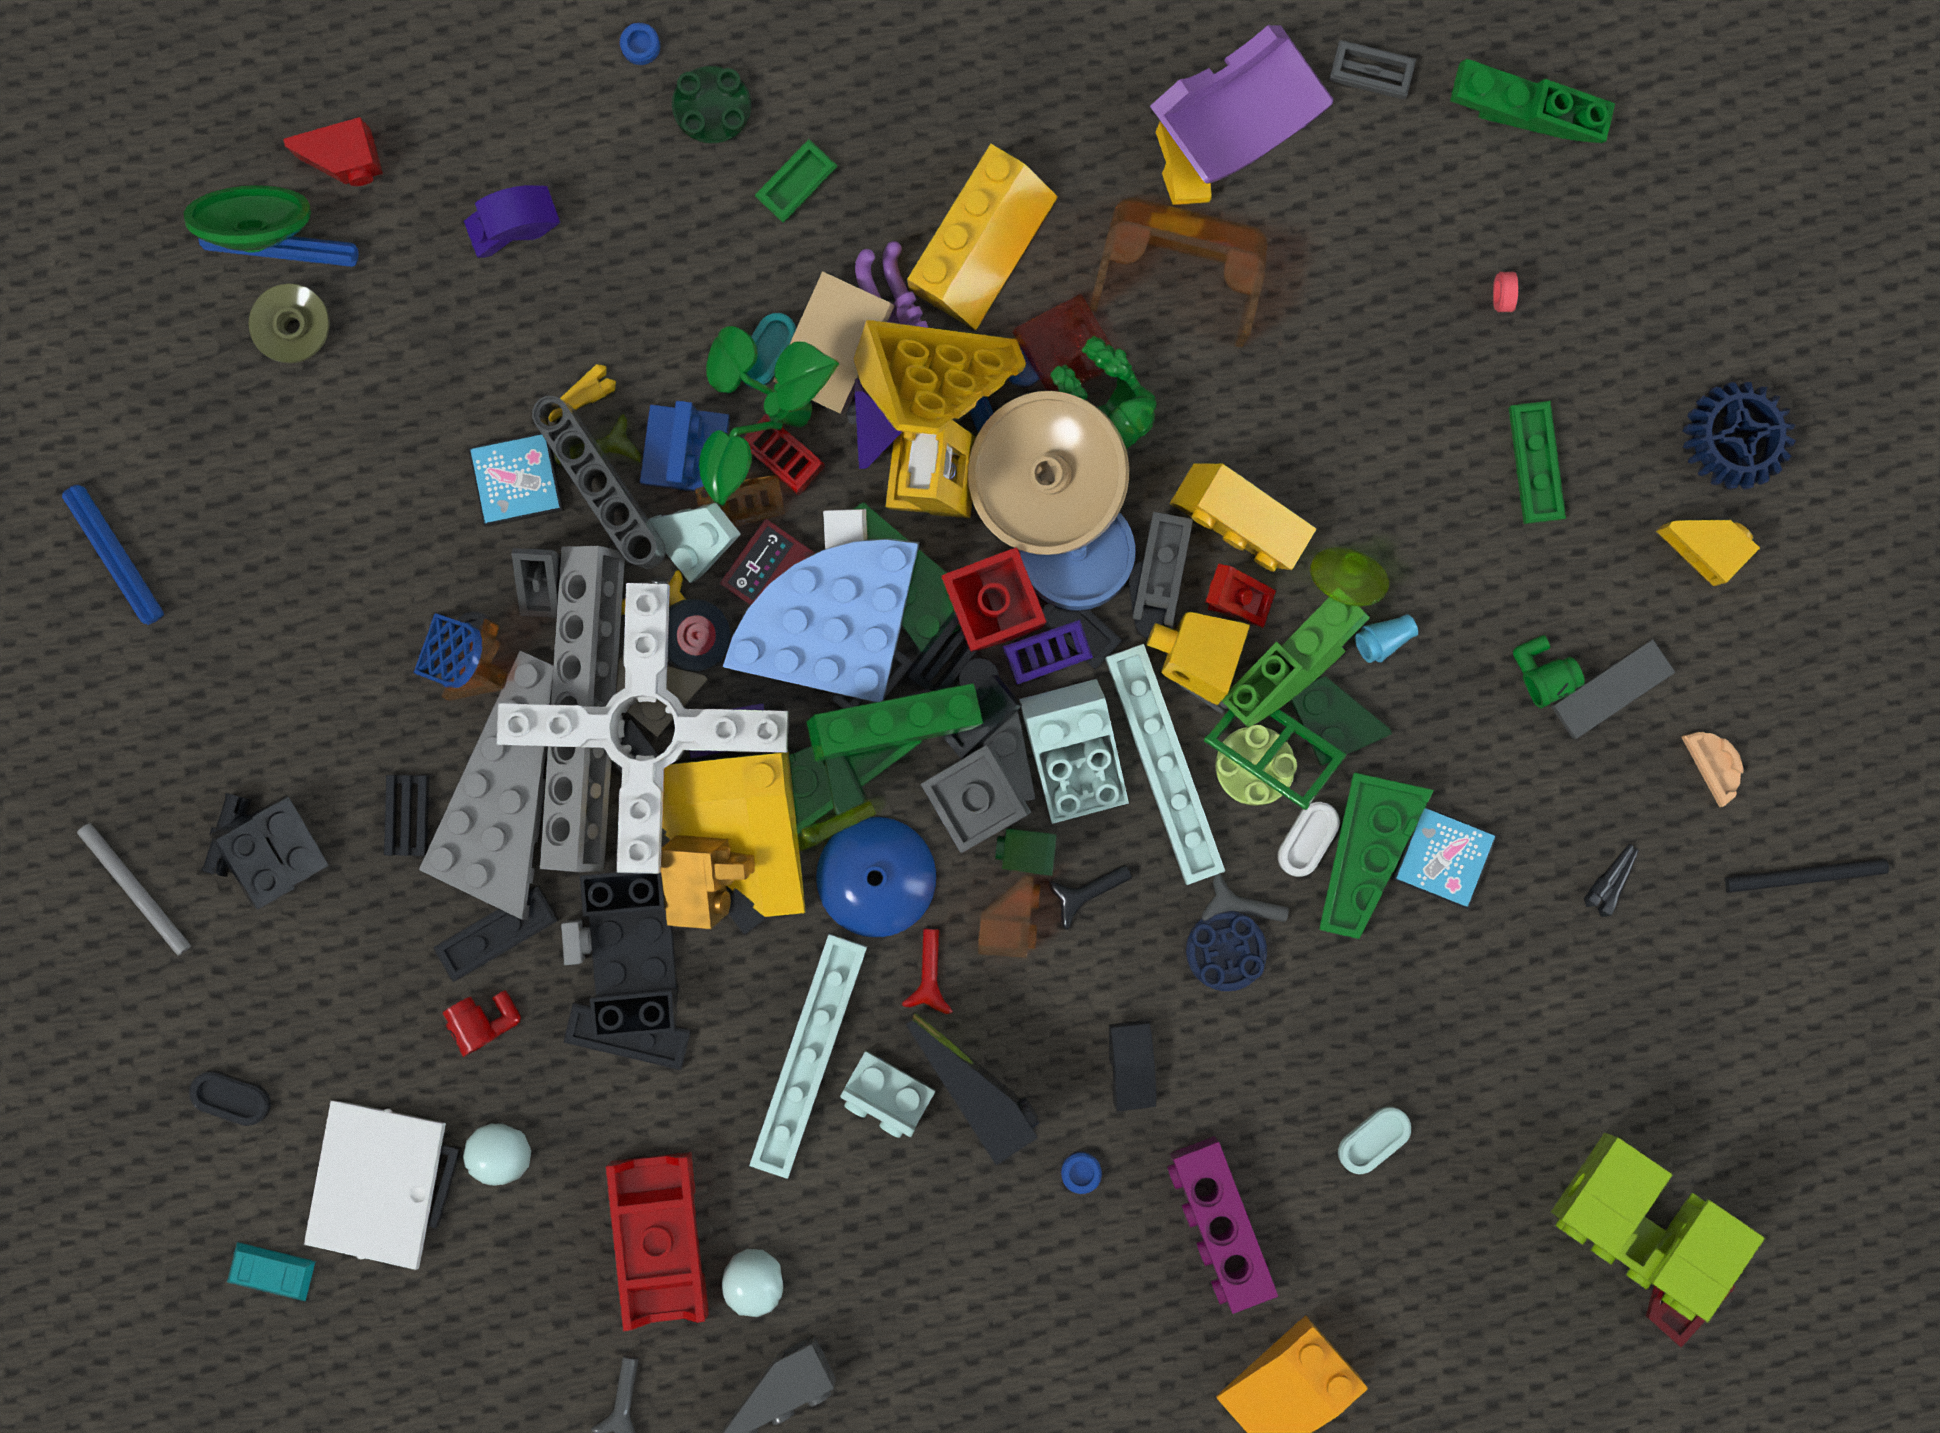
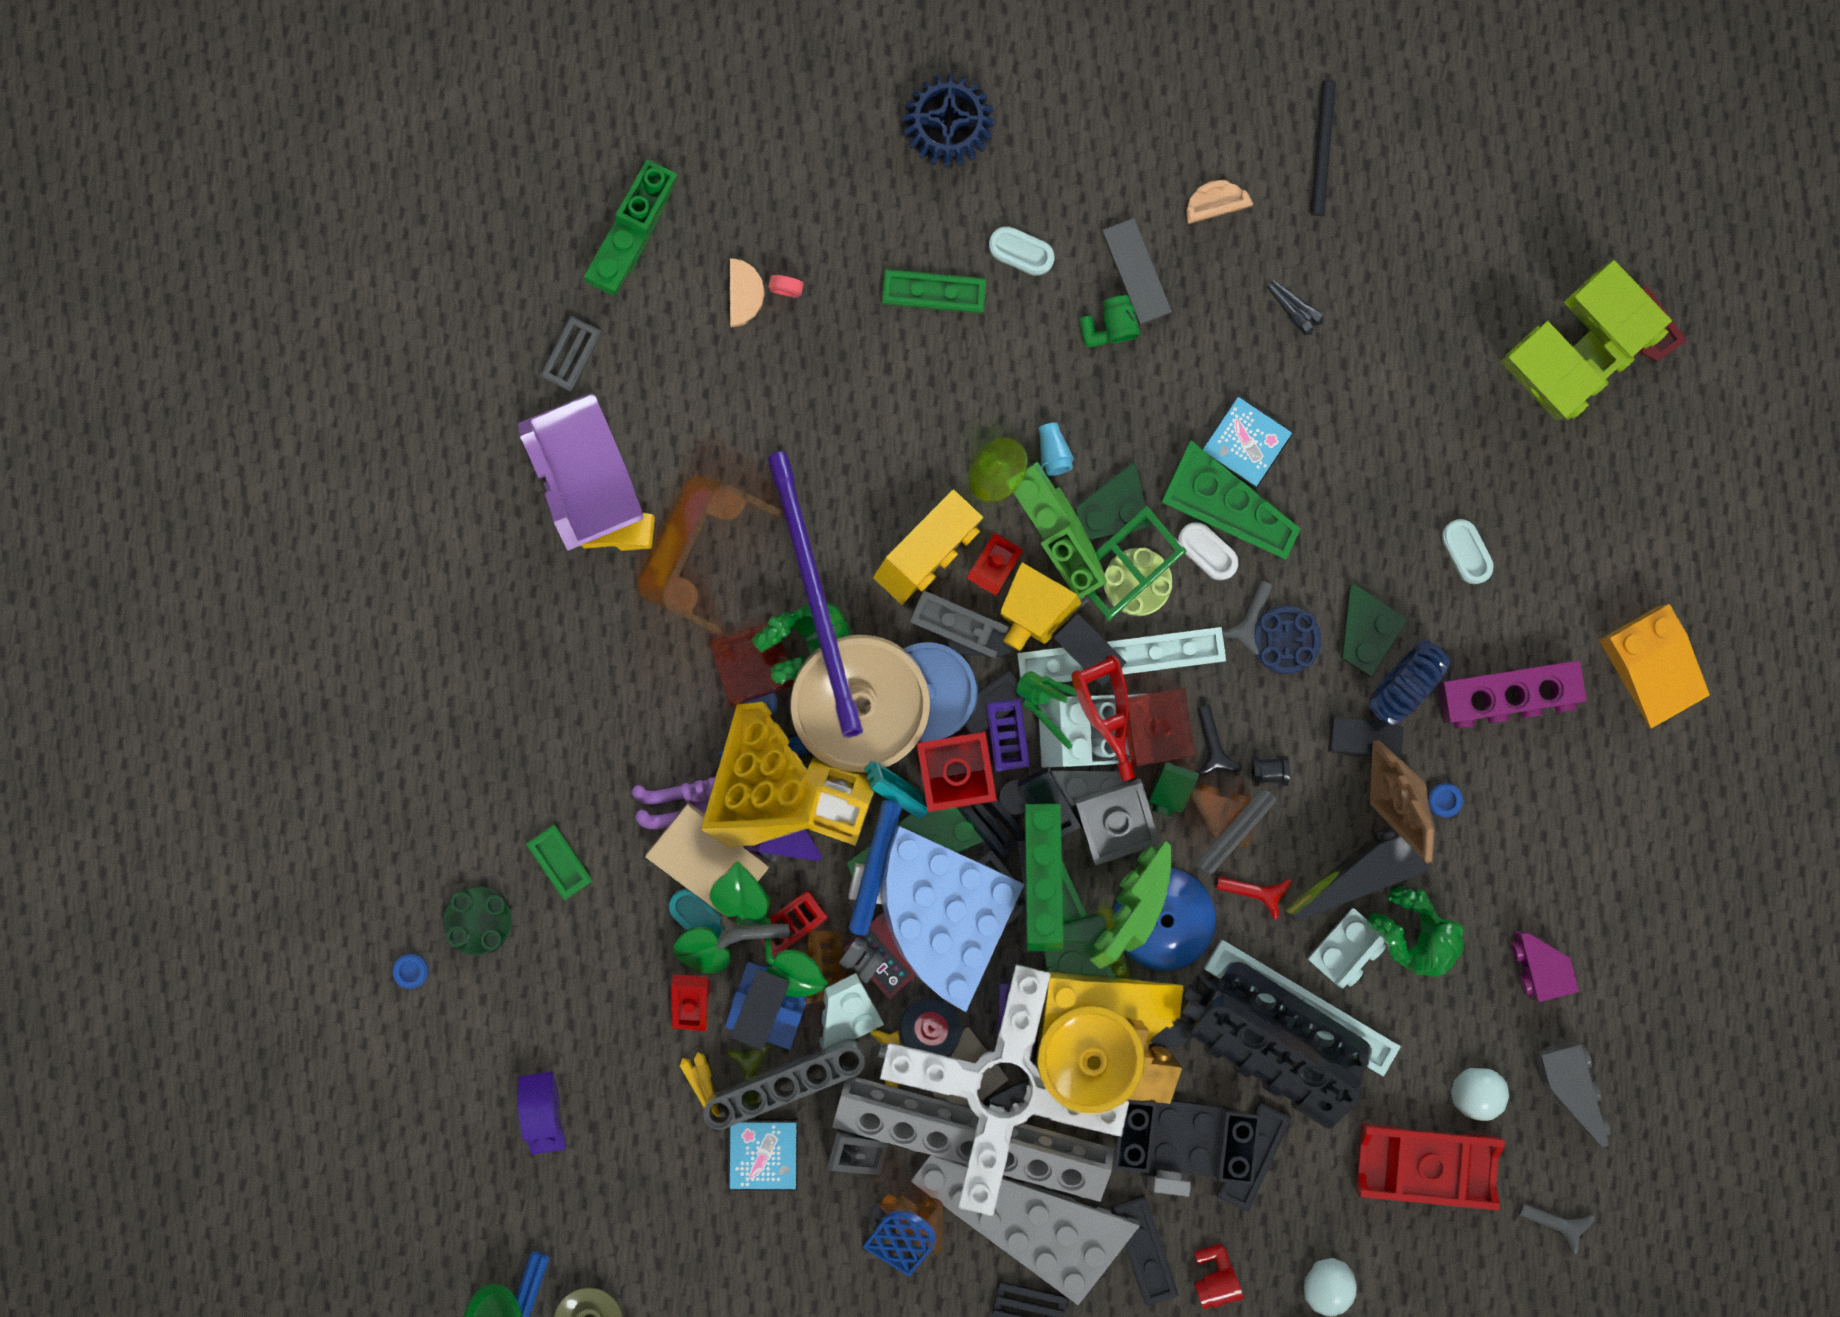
camera: 85 degrees left, 0 degrees up
(340, 151) = (449, 1247): red slope -> none
(670, 358) = (690, 1002): none -> red slope
(676, 432) = (760, 1010): none -> black slope
(700, 792) = (1078, 1039): none -> yellow dish
(754, 548) = (868, 964): none -> dark grey wheel
(758, 389) = (734, 932): none -> dark grey piece
(759, 1032) = (1275, 1044): none -> black piece
(864, 529) = (874, 867): none -> blue axle
(885, 842) = (1141, 903): none -> bright green slope
(910, 1330) = (1545, 969): none -> magenta slope
(918, 1198) = (1439, 940): none -> green hair
(959, 535) = (896, 789): none -> teal tile
(982, 237) = (644, 714): yellow slope -> none
(994, 935) = (1236, 831): none -> dark grey axle
(1043, 446) = (844, 703): none -> dark purple piece
(1071, 962) = (1270, 771): none -> black bush
(1072, 1118) = (1401, 800): none -> medium nougat wedge
(1091, 772) = (1116, 722): none -> red piece
(1094, 822) = (1159, 728): none -> clear red plate
(1106, 675) = (1039, 691): none -> green plant
(1165, 724) = (1086, 645): none -> black tile
(1209, 1101) = (1409, 682): none -> dark blue gear
(1258, 1043) = (1369, 630): none -> dark green wing
(1487, 249) = (745, 292): none -> light nougat tile
(1606, 552) = (1021, 251): none -> light aqua tile
(1711, 546) = (1037, 163): yellow slope -> none

